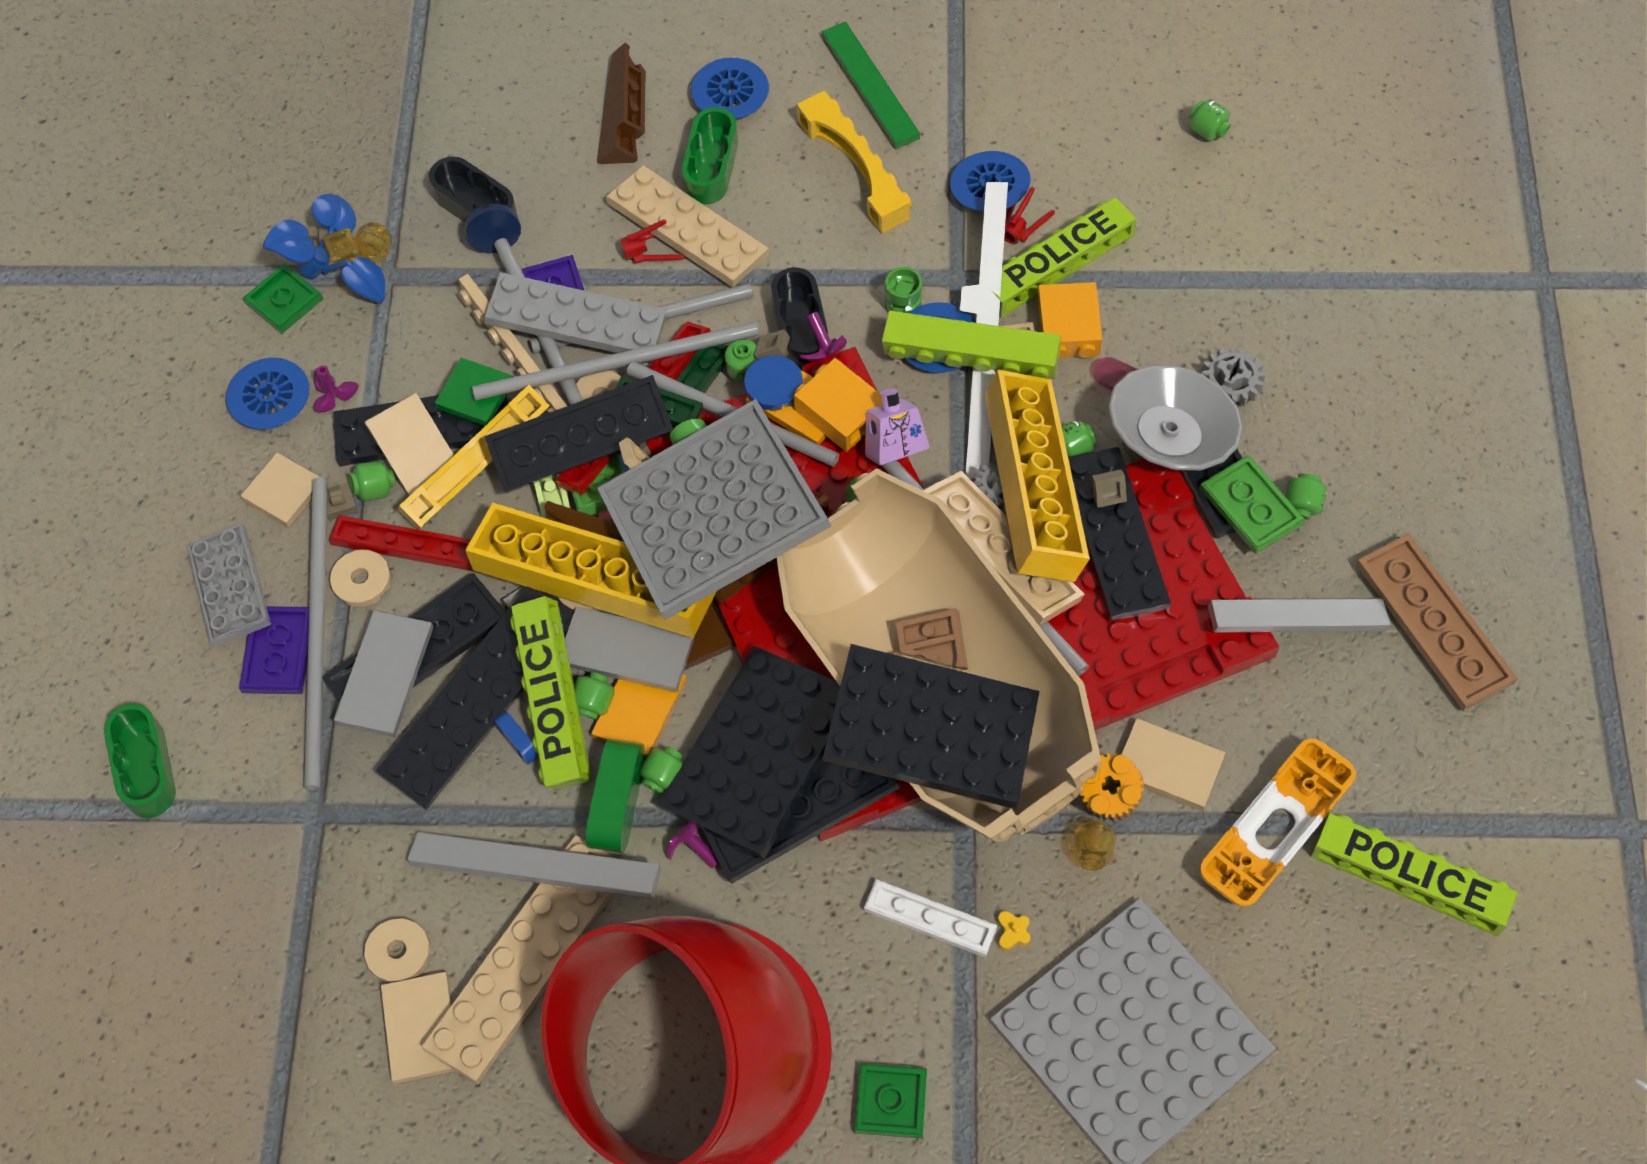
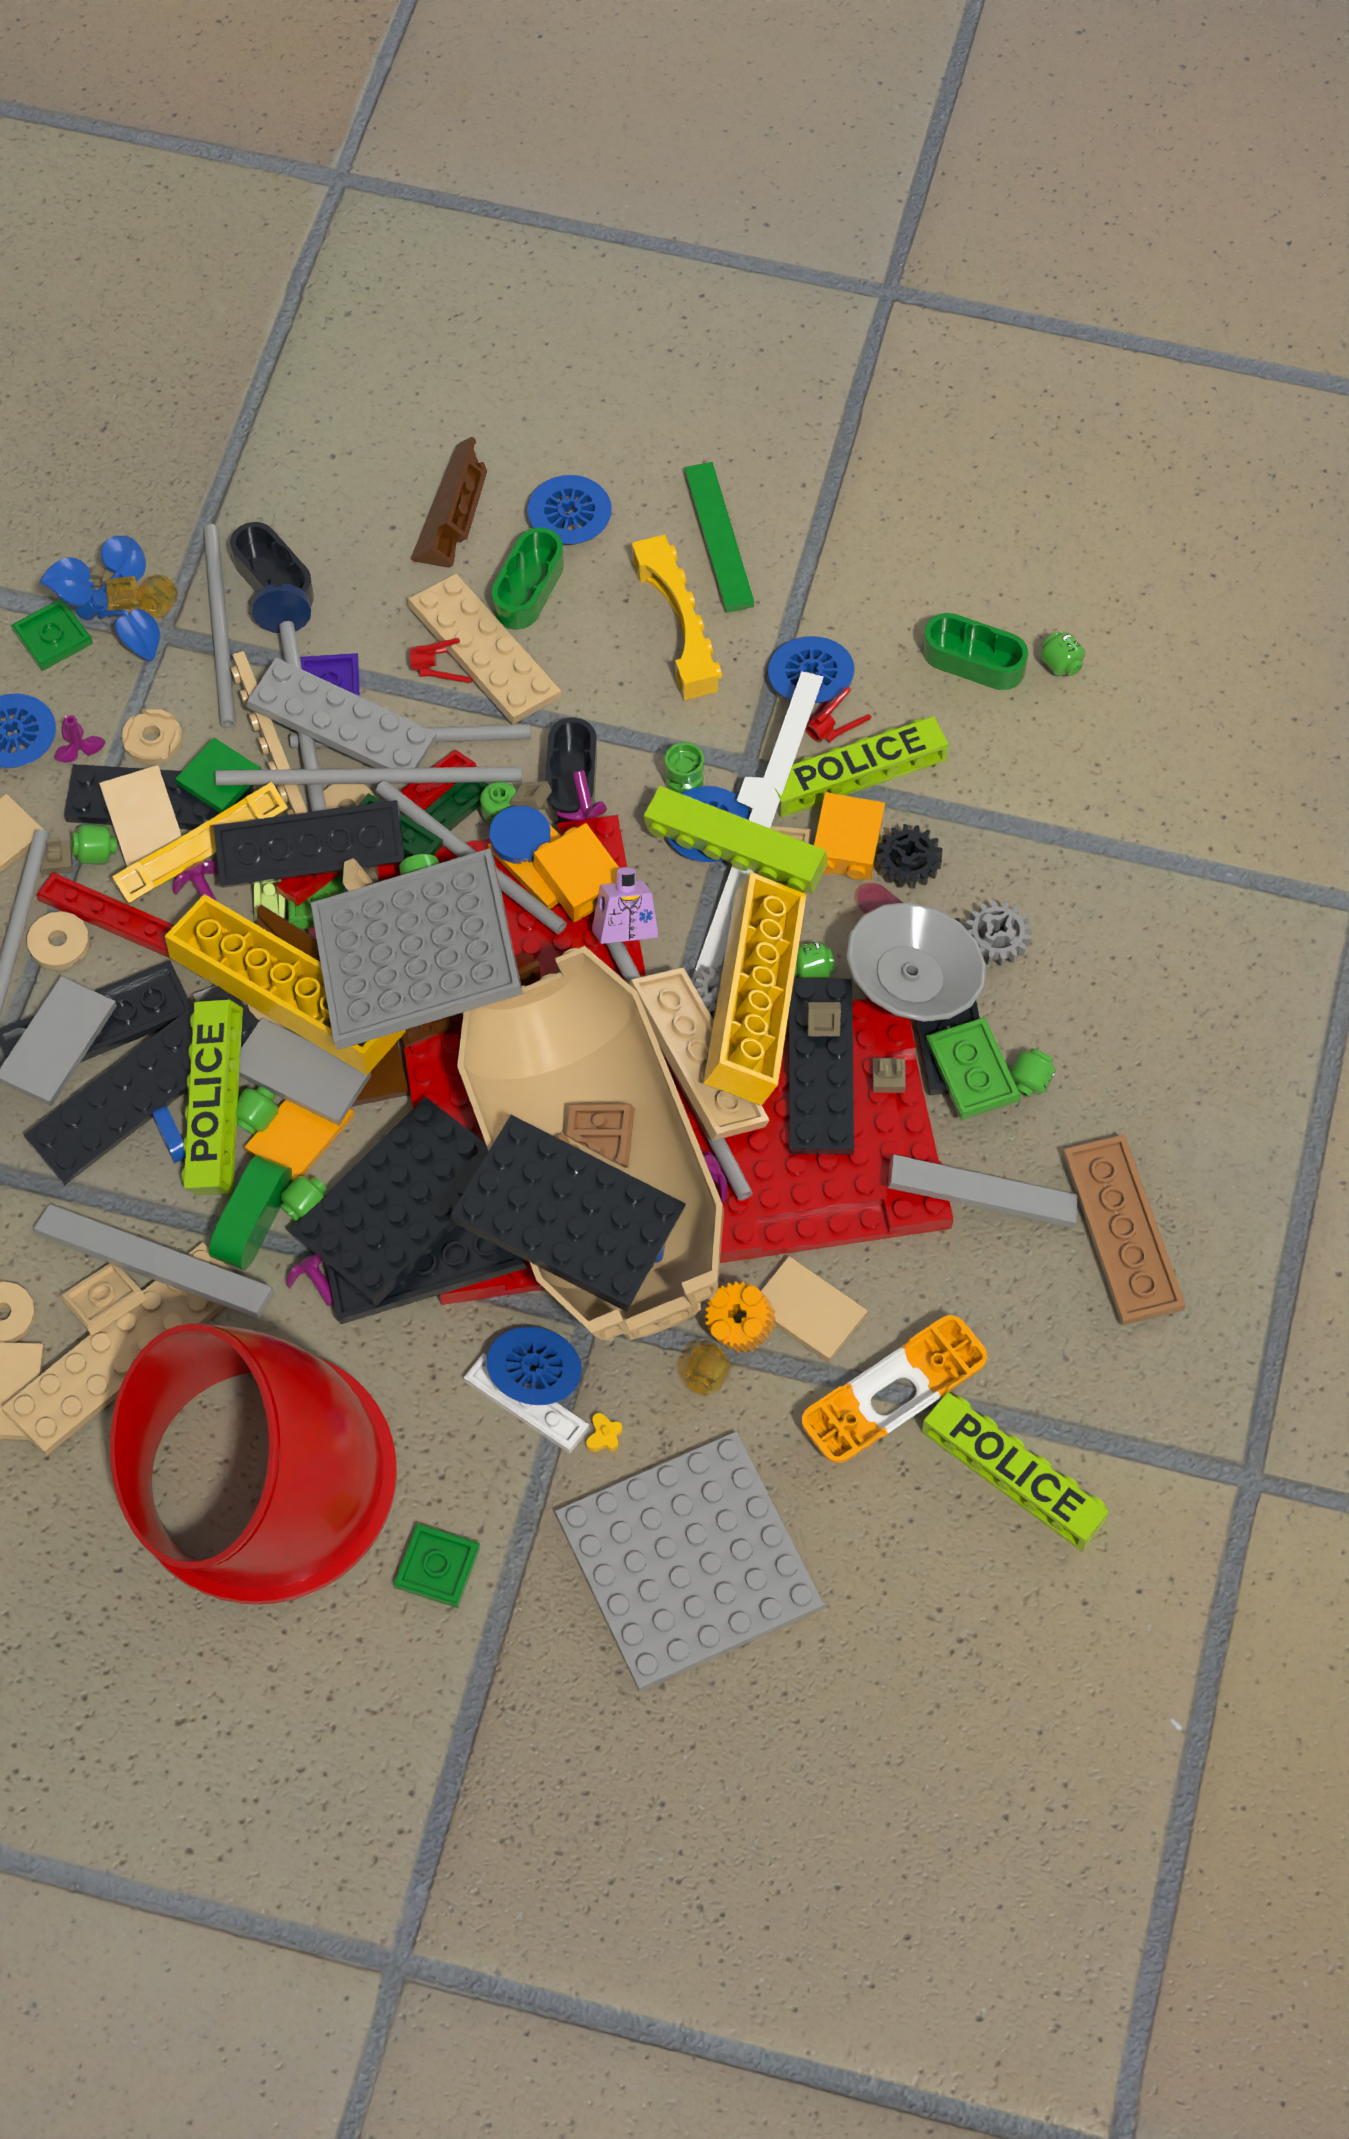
camera: 10 degrees right, 0 degrees up
(406, 383) = (153, 751): none -> tan tile
(438, 259) = (219, 626): none -> light grey piece
(476, 487) = (196, 874): none -> magenta plant
(493, 912) = (103, 1298): none -> tan tile
(904, 876) = (562, 1364): none -> blue piece
(1130, 326) = (909, 856): none -> black gear
(1131, 134) = (975, 651): none -> green plant
(1180, 527) = (888, 1075): none -> dark tan tile

